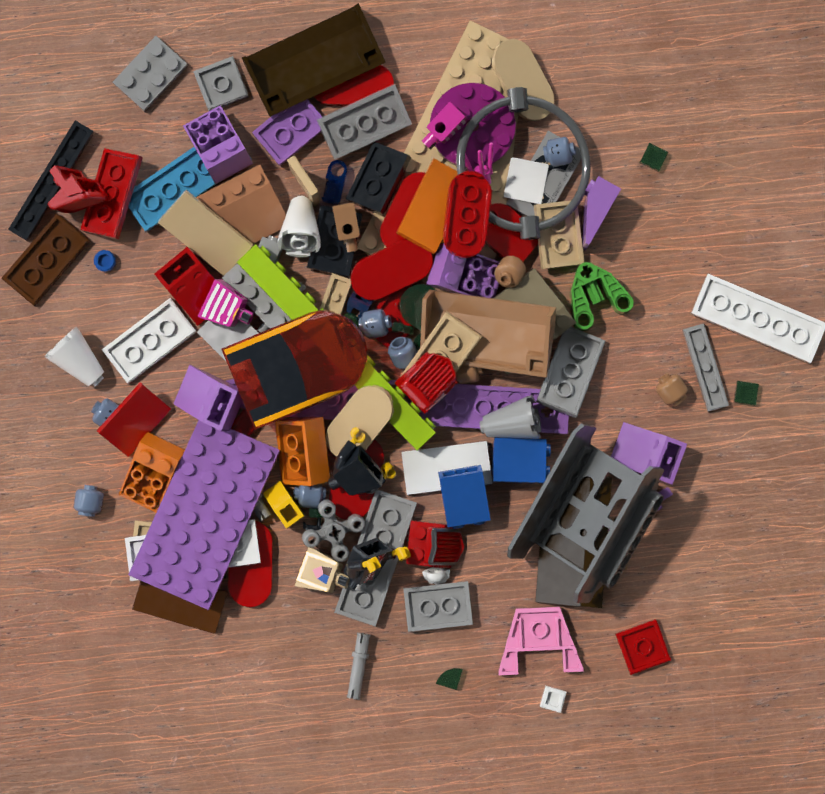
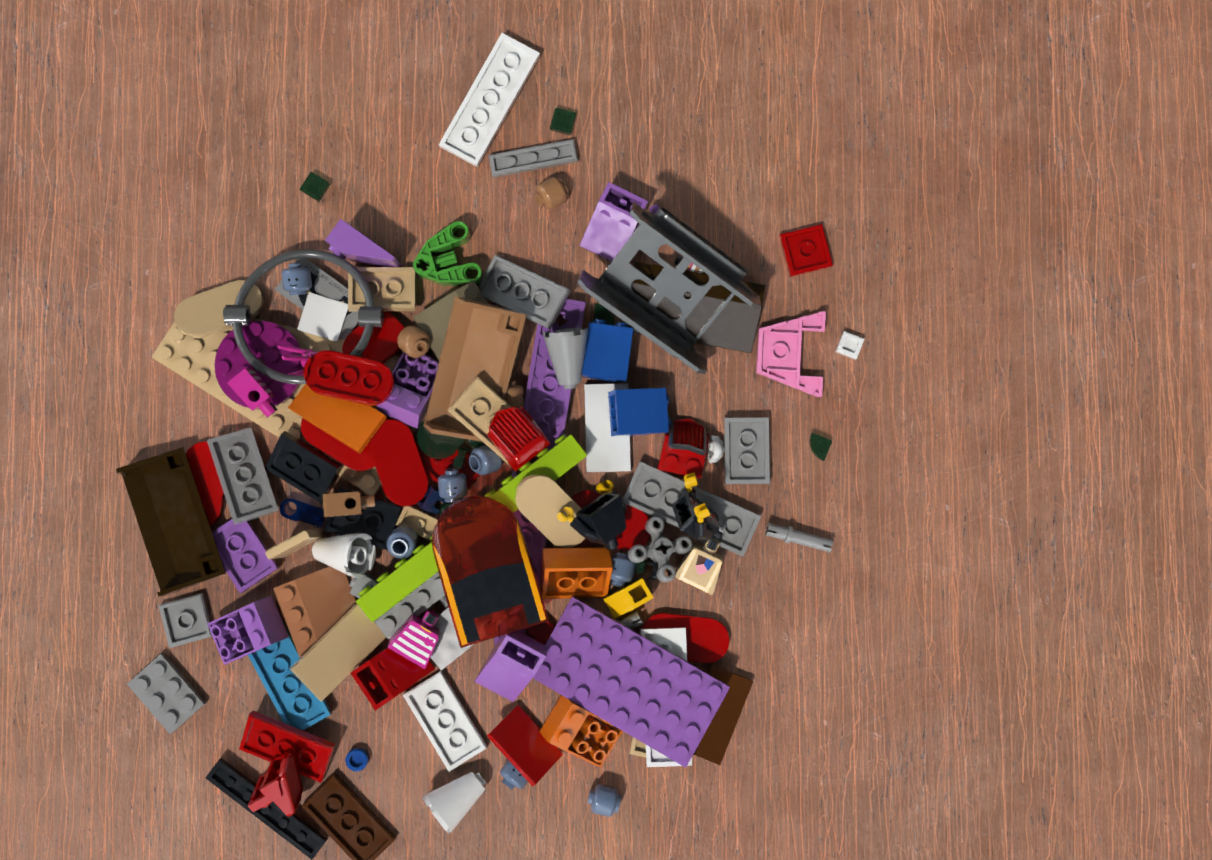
camera: 80 degrees left, 0 degrees up
(315, 281) = (402, 542): none -> sand blue head
(556, 449) = (603, 313): none -> clear green tile

